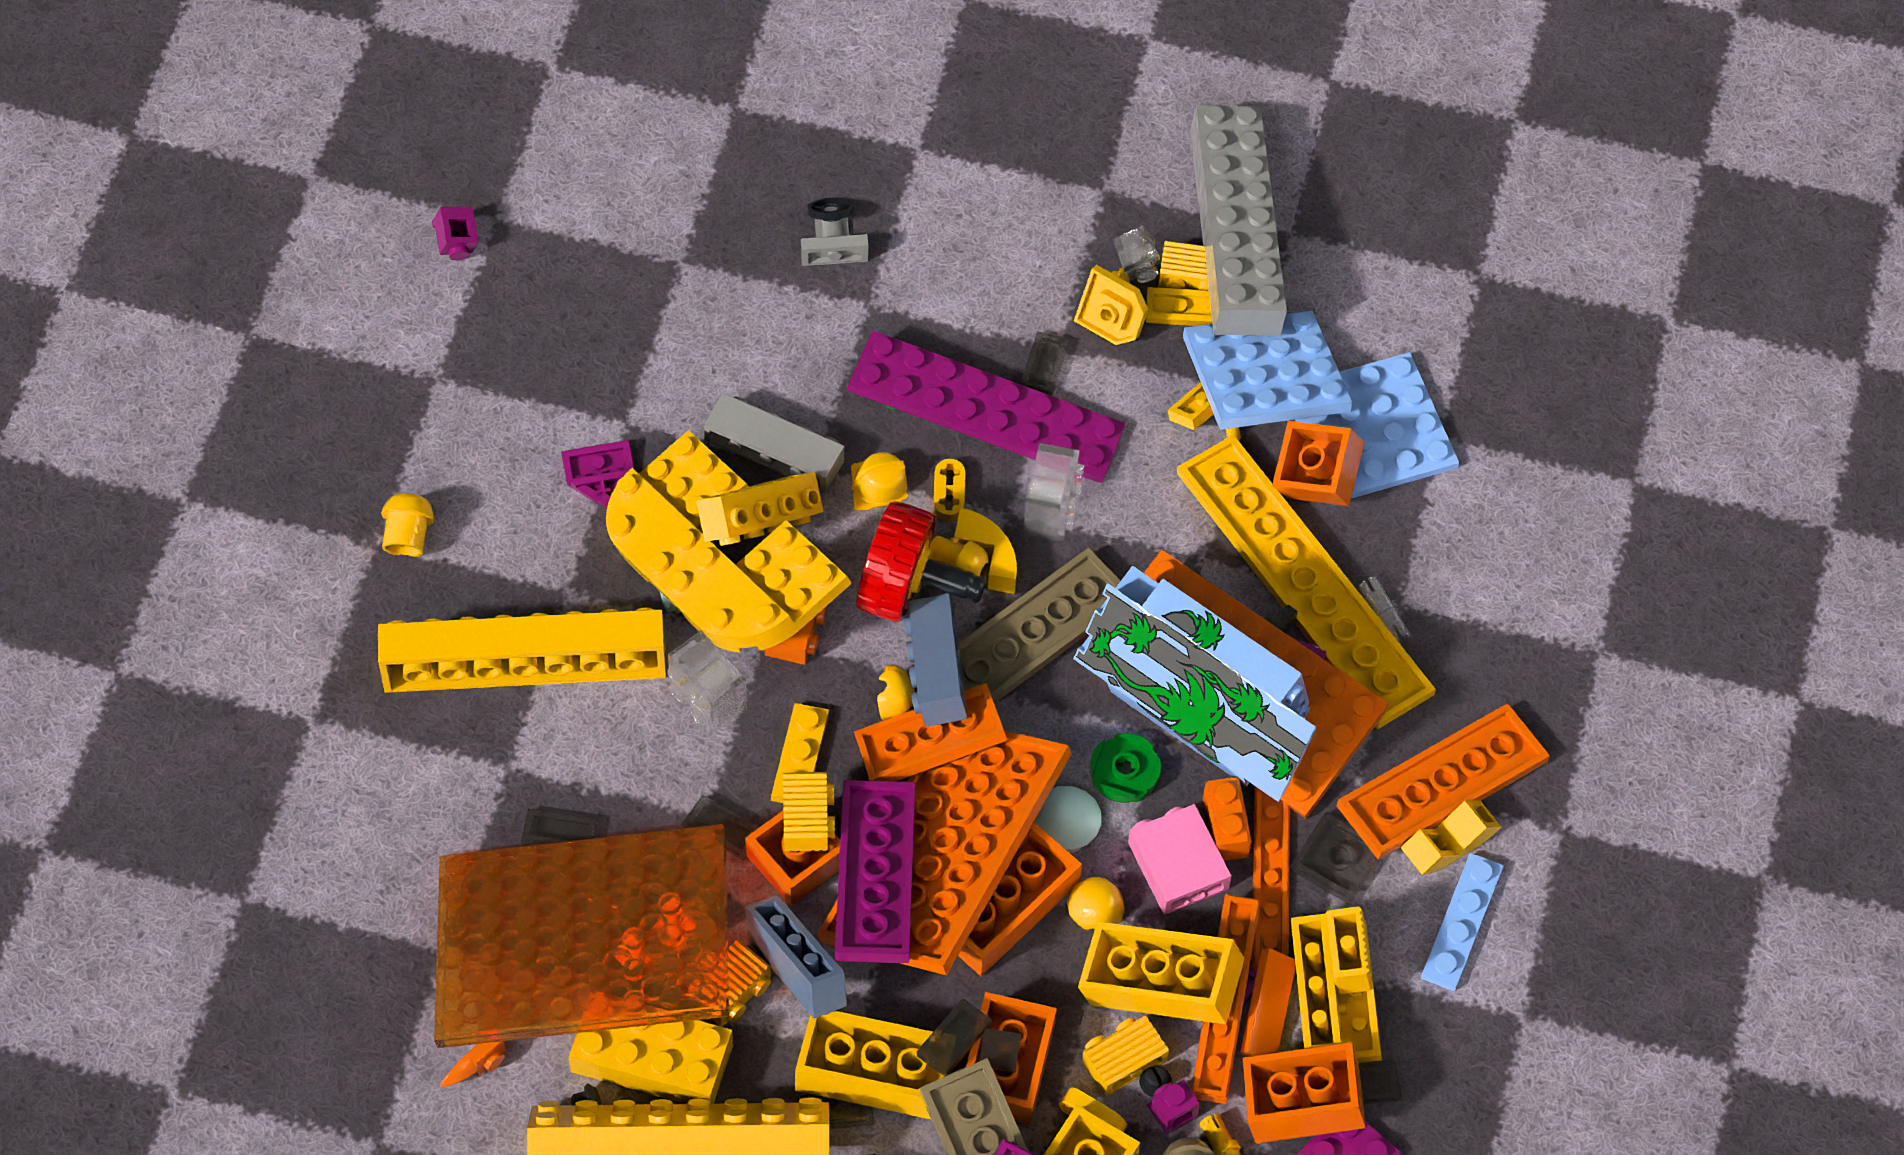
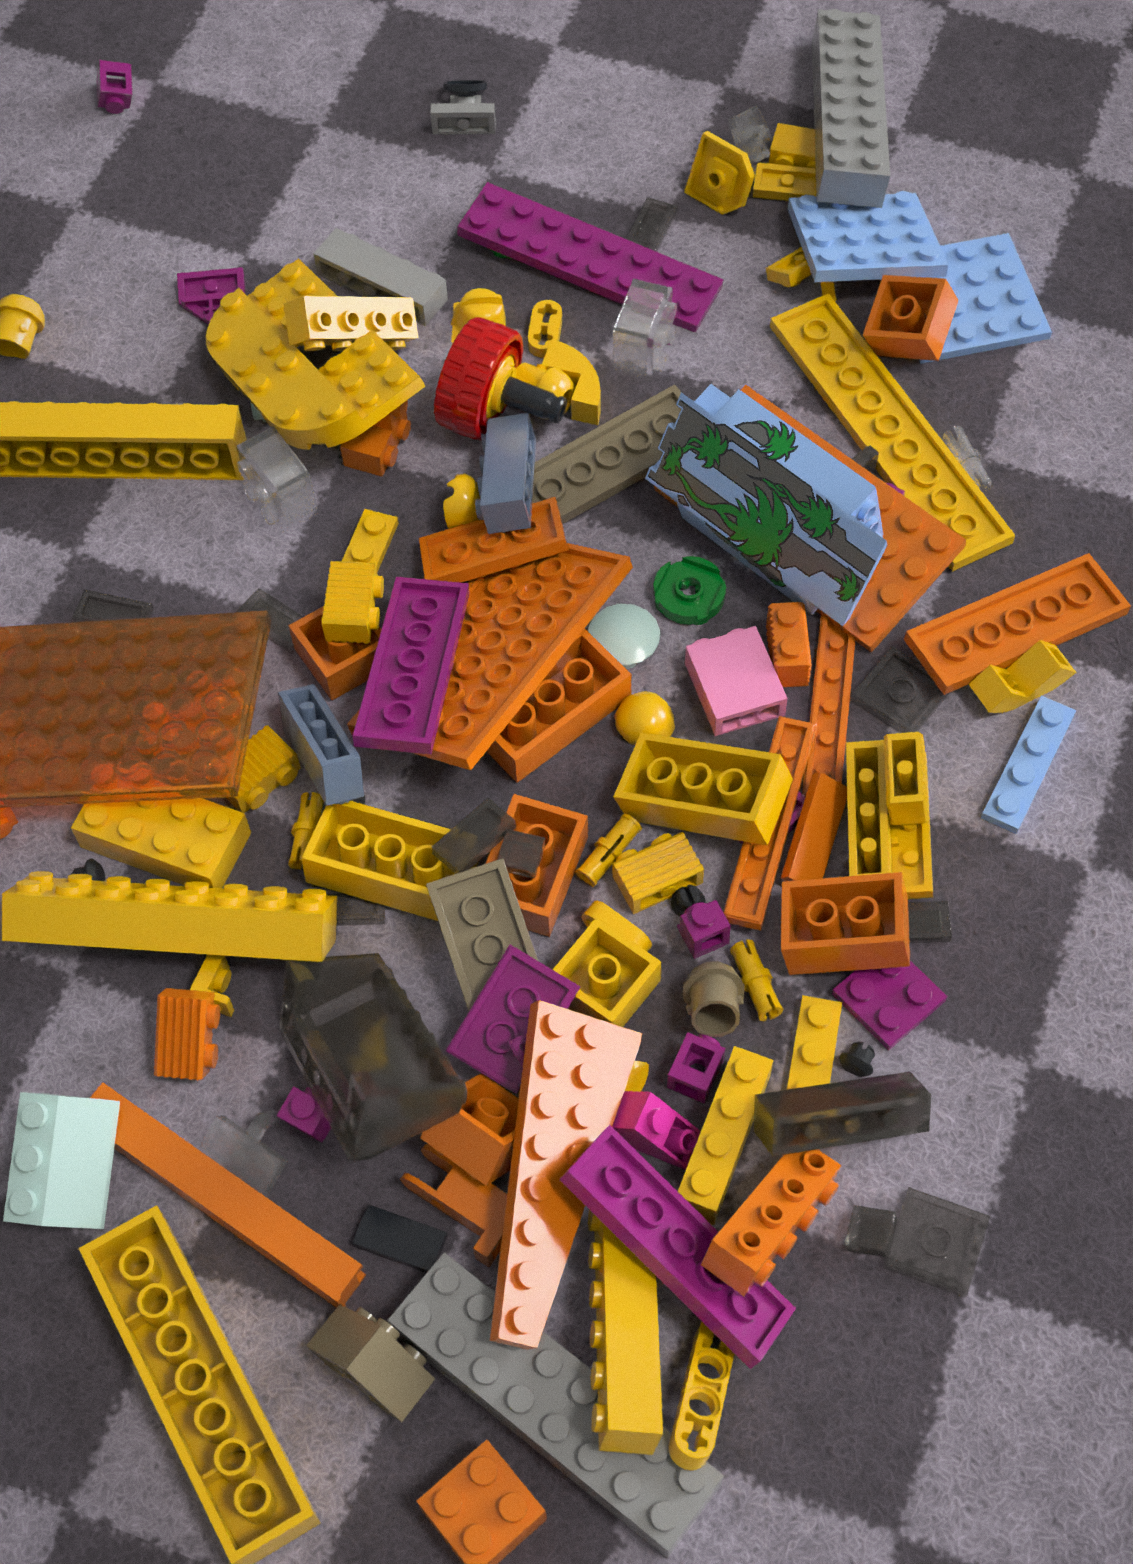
camera: 10 degrees right, 0 degrees up
(787, 1039) = (302, 830): none -> yellow pin
(1076, 1036) = (623, 832): none -> yellow pin

